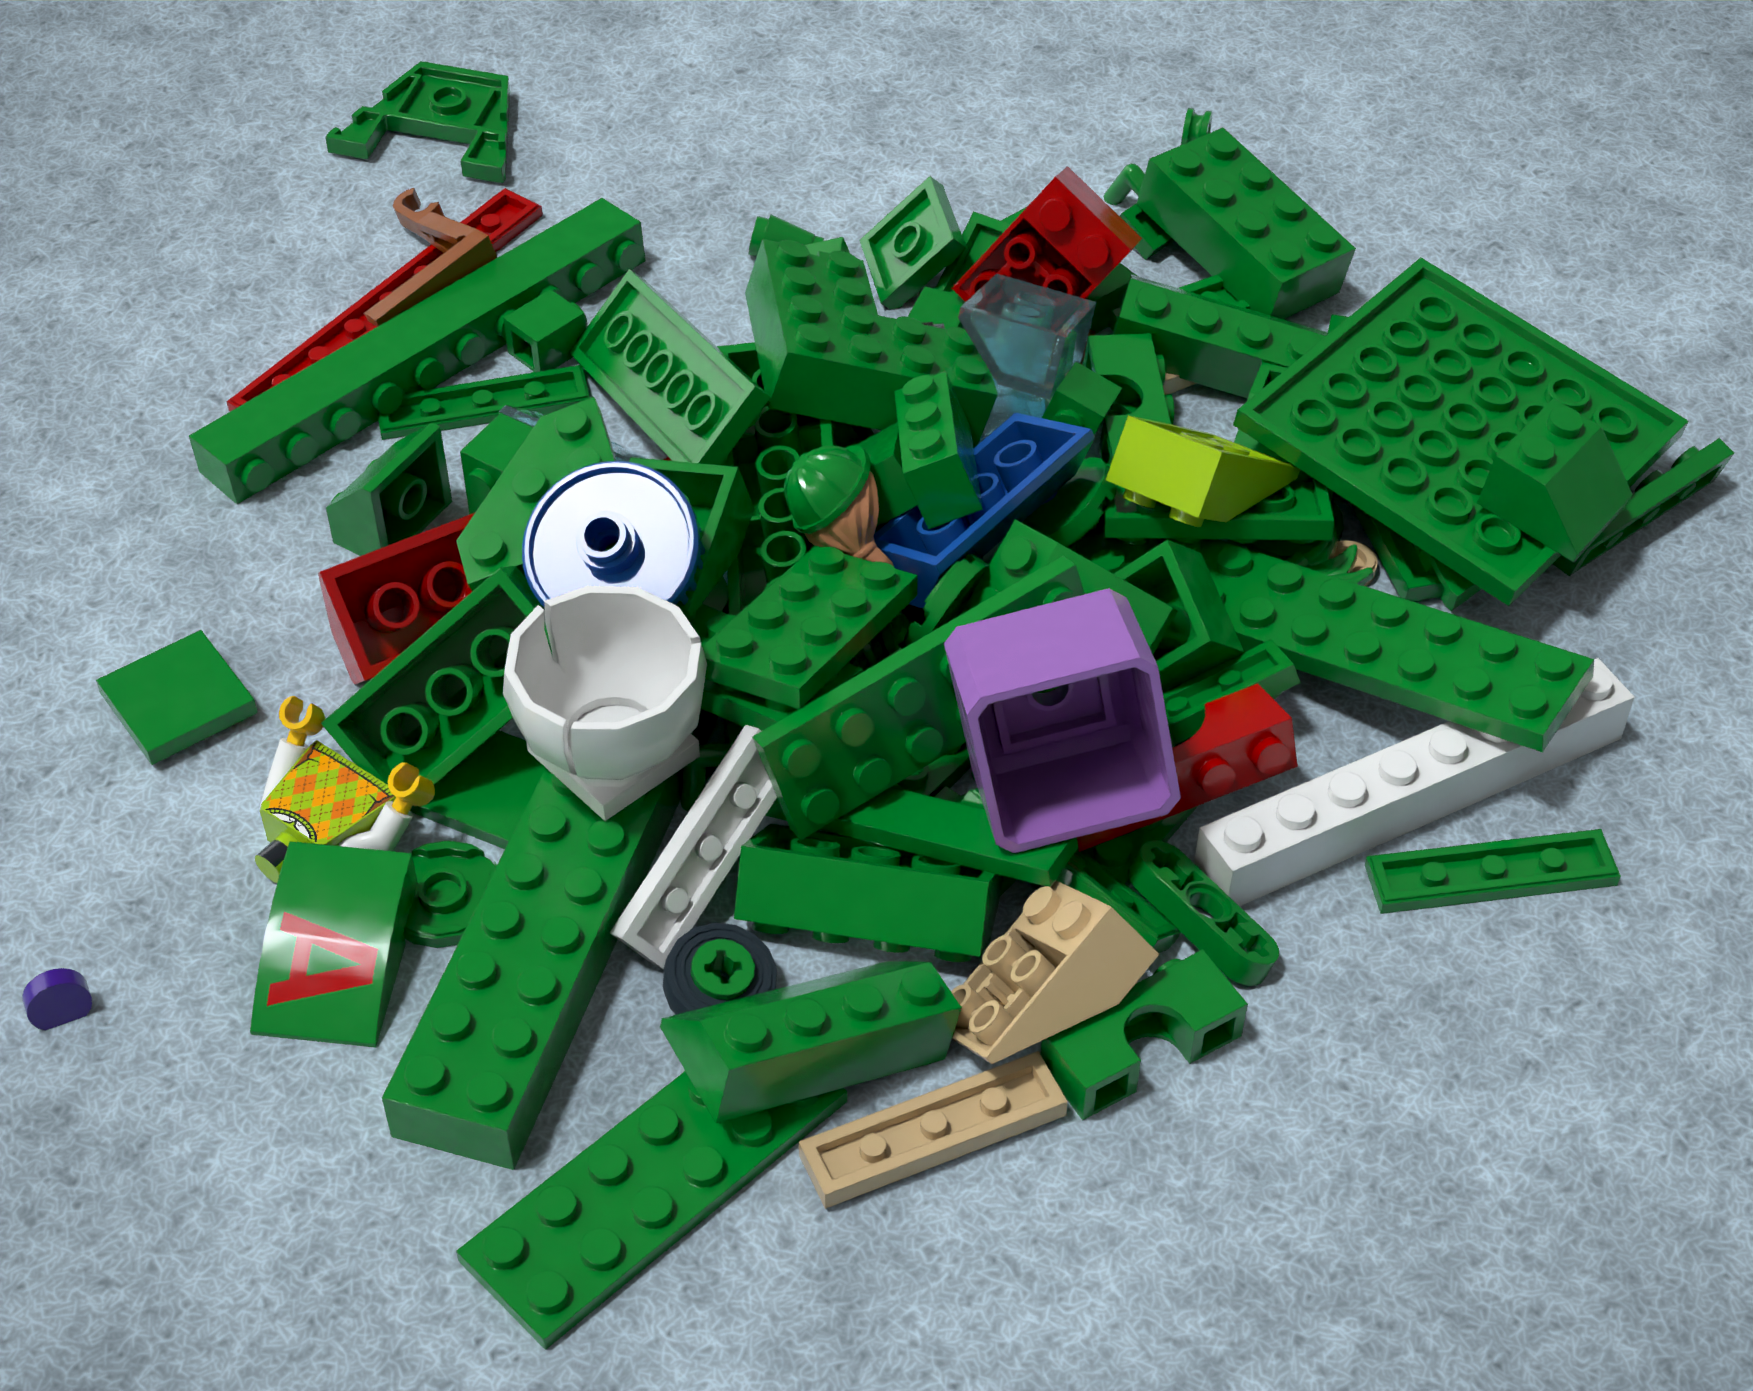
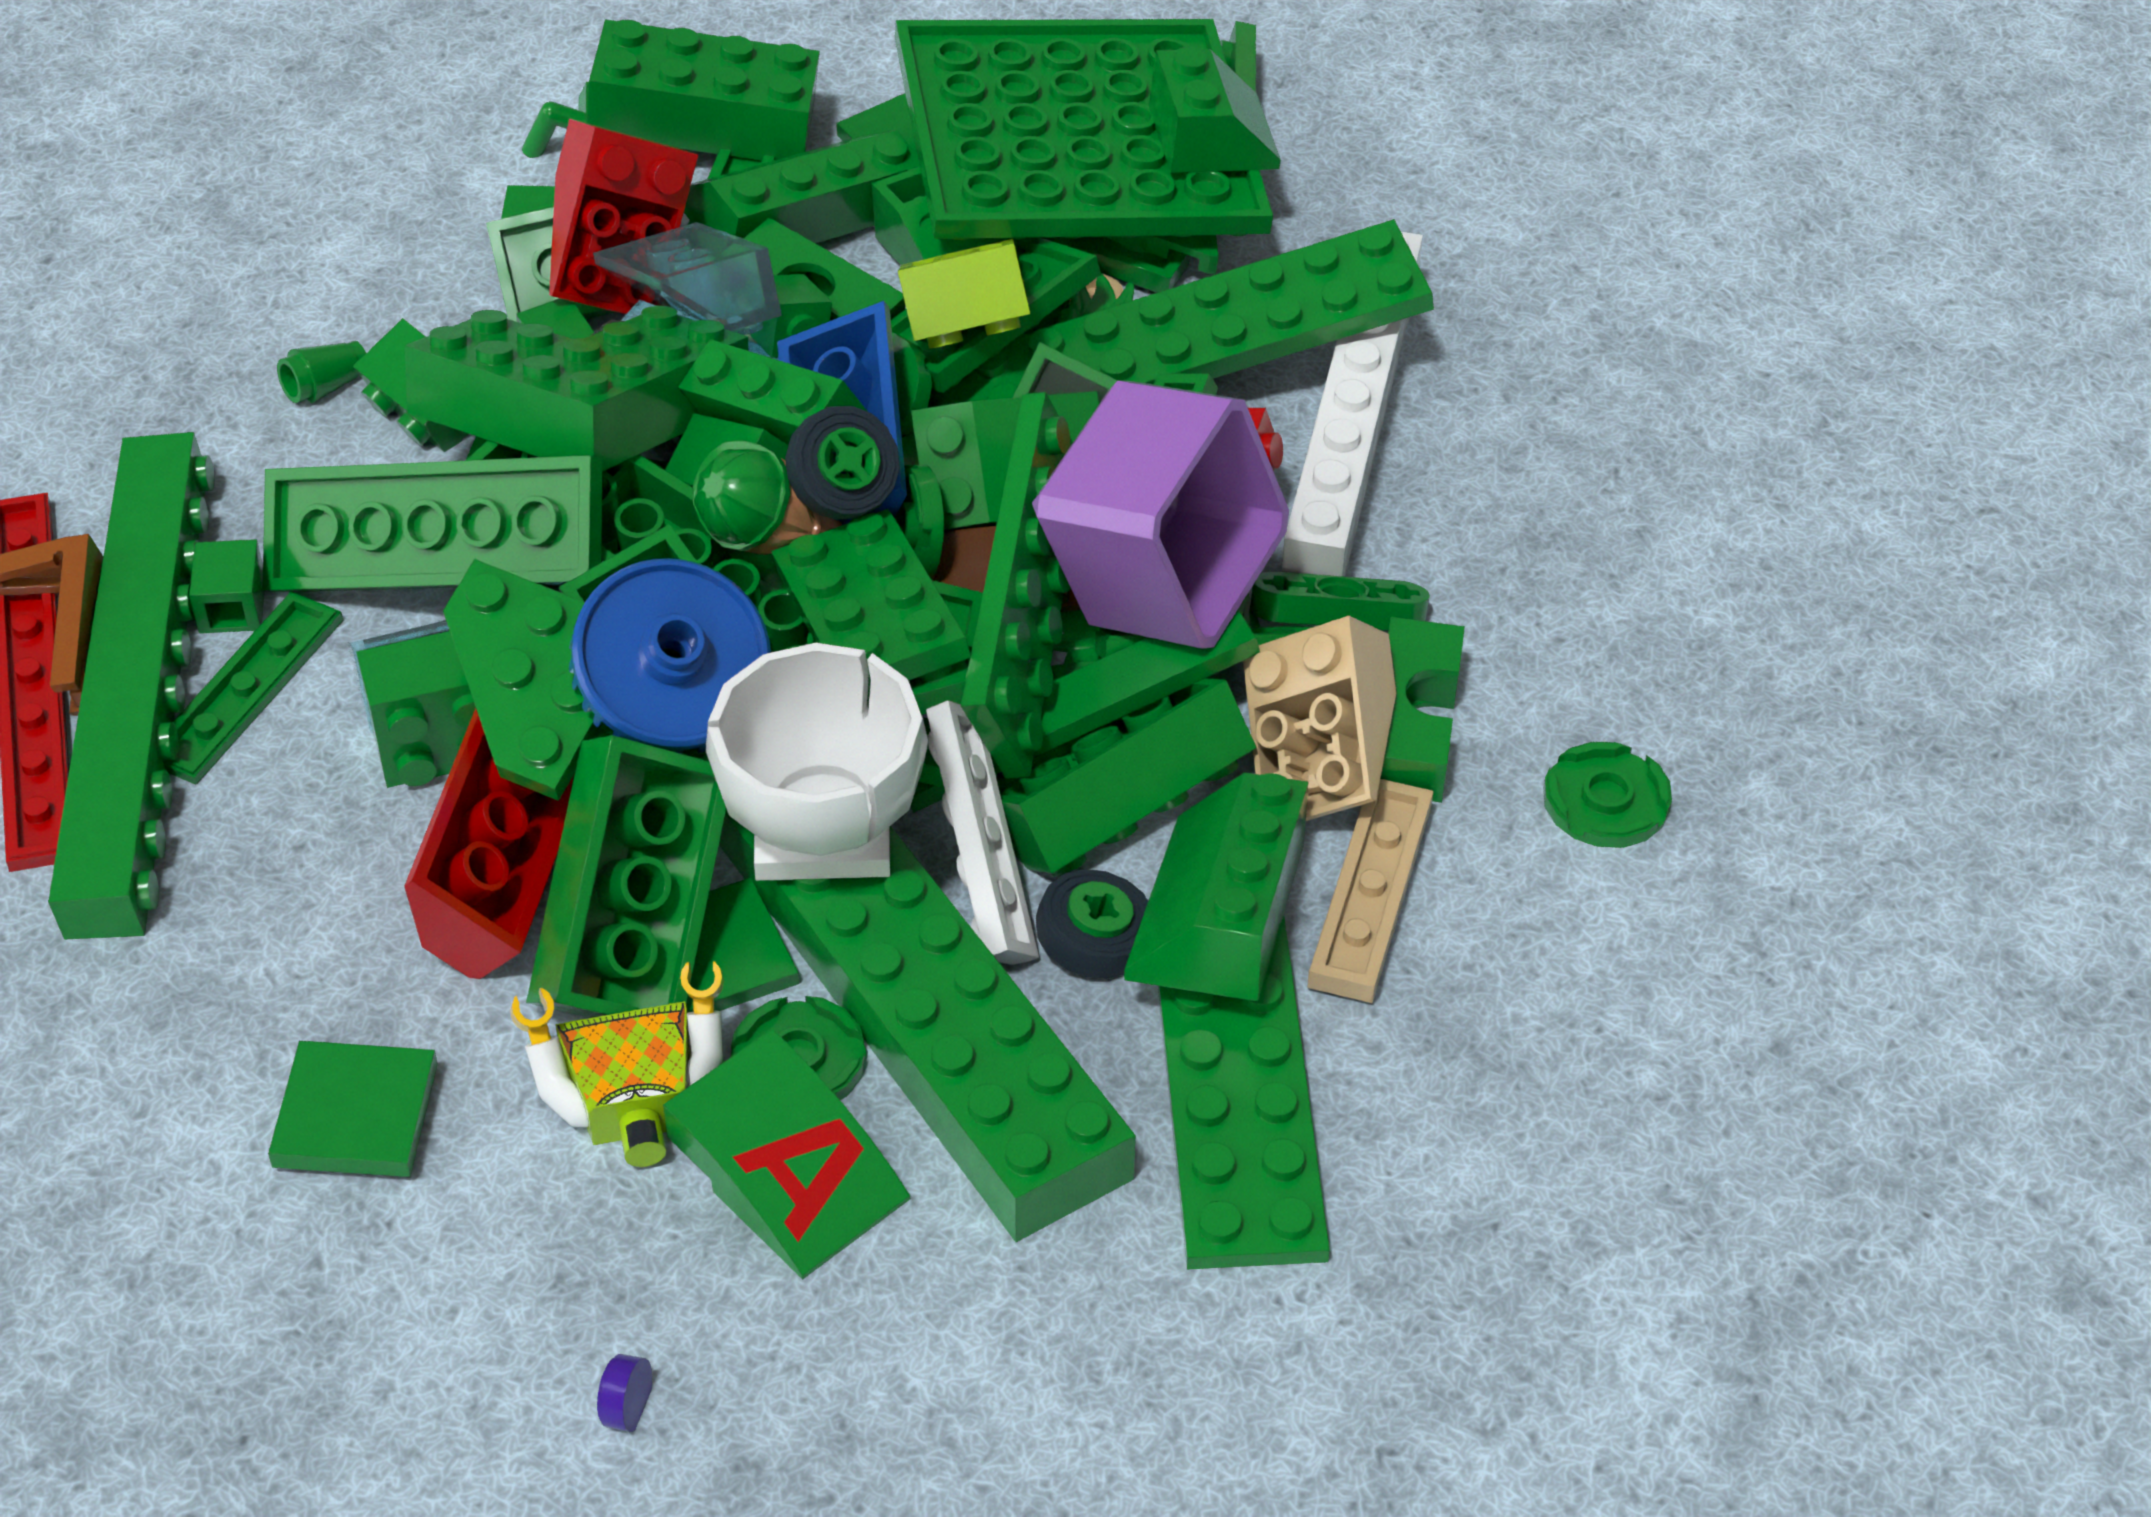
camera: 50 degrees left, 0 degrees up
(393, 495) = (302, 807): green slope -> none
(879, 513) = (861, 450): none -> black wheel
(912, 244) = (446, 278): green plate -> none
(1196, 125) = (534, 49): green bush -> none
(1205, 1250) = (1604, 811): none -> green tile
(1491, 871) = (1461, 430): green tile -> none

